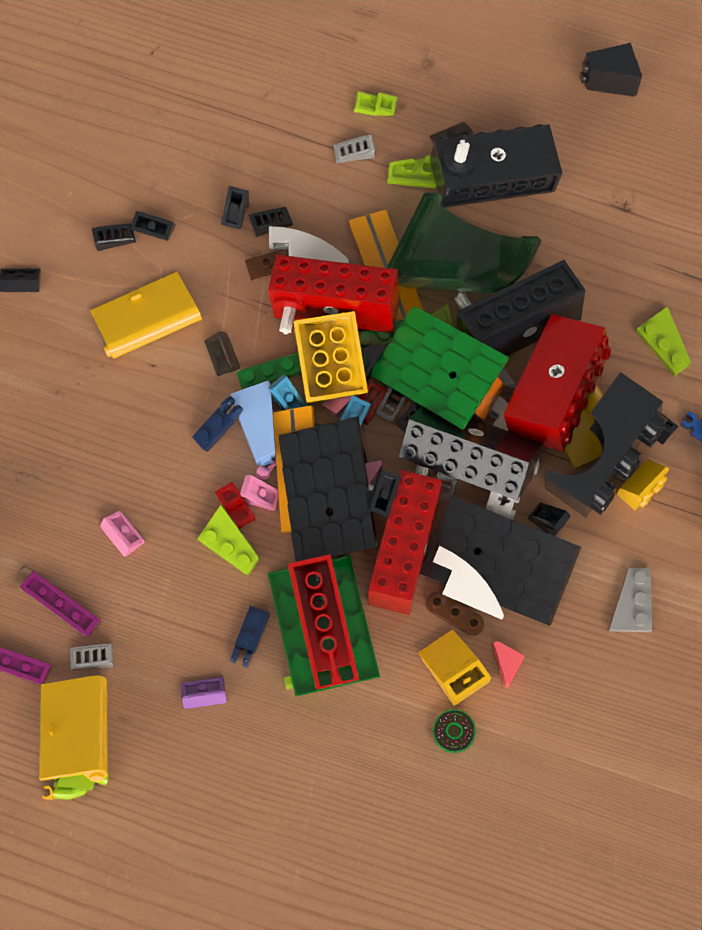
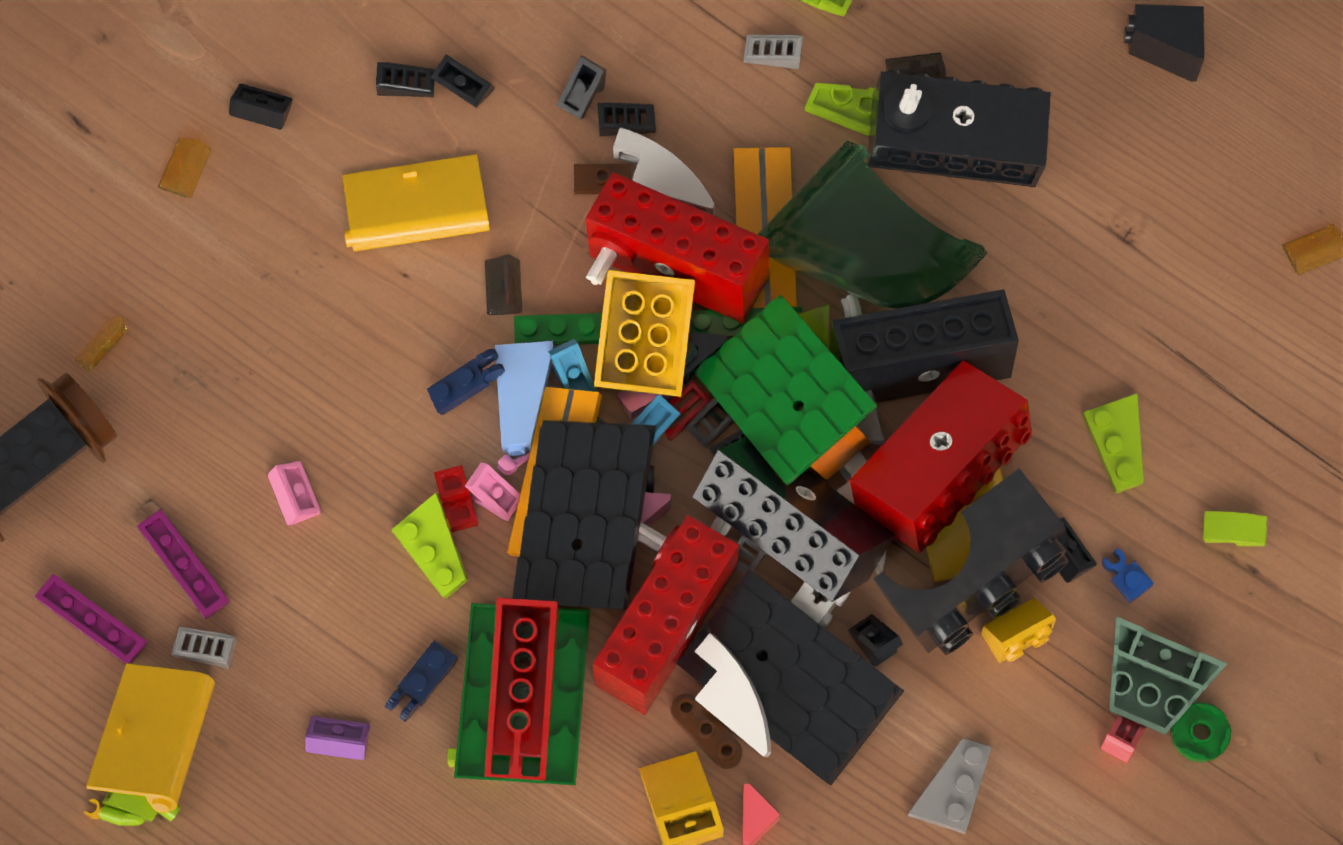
camera: 15 degrees right, 0 degrees up
(383, 493) = (653, 540): black slope -> none

